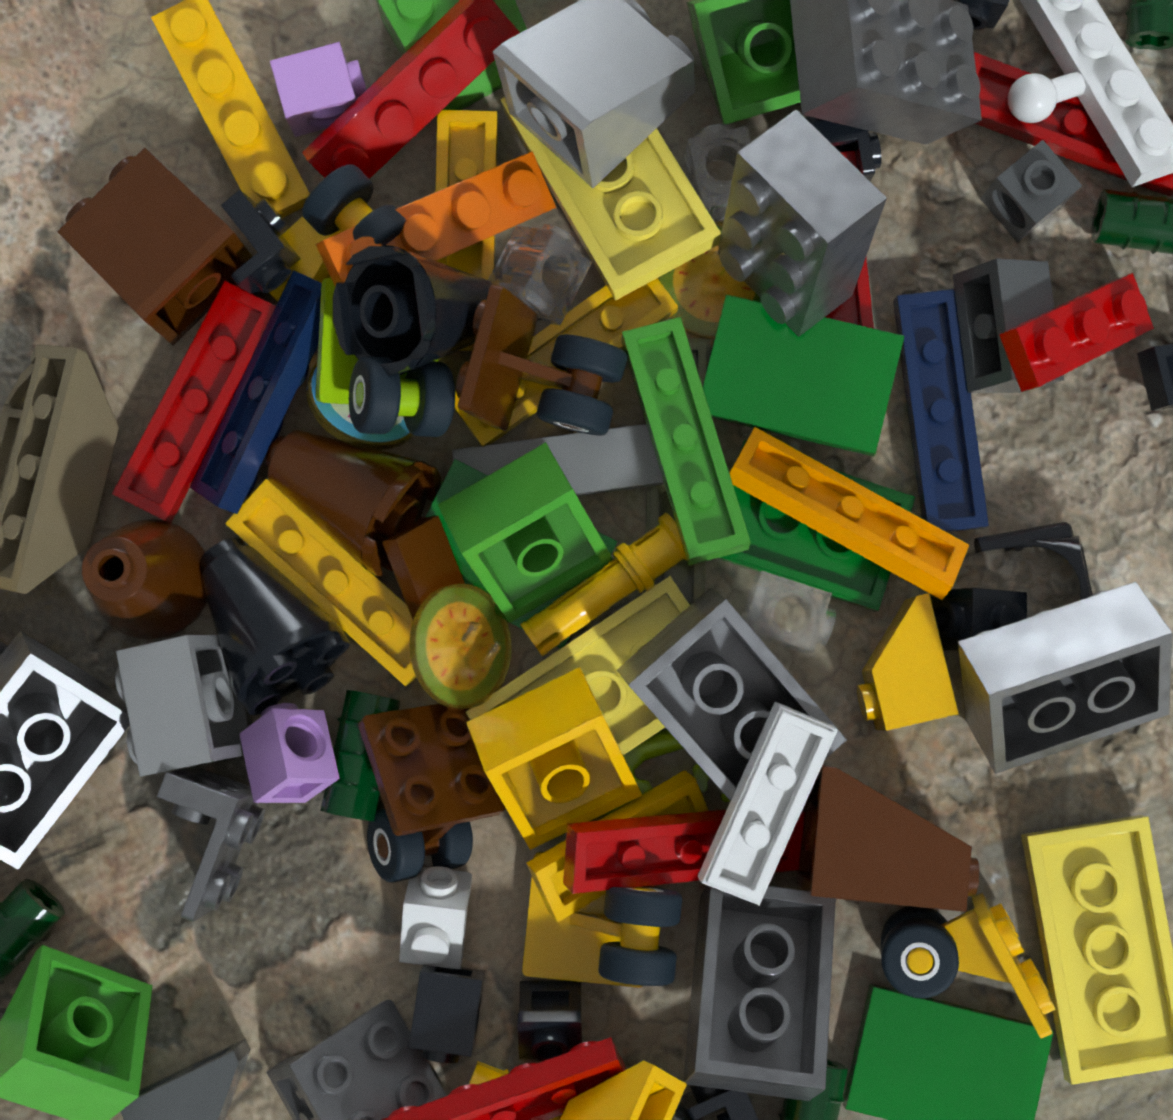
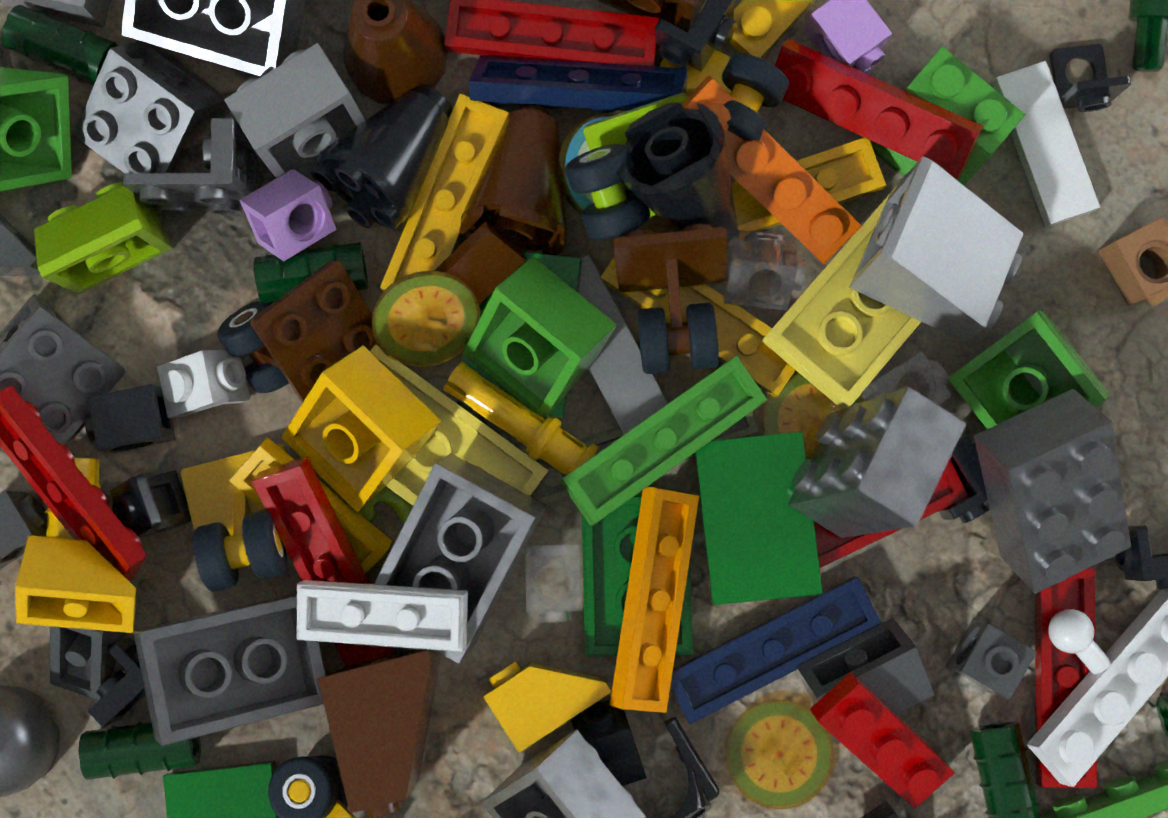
camera: 75 degrees right, 0 degrees up
(110, 875) = (144, 109): none -> flat silver bracket
(235, 975) = (98, 239): none -> lime slope
(1048, 447) = (779, 754): none -> clear yellow piece

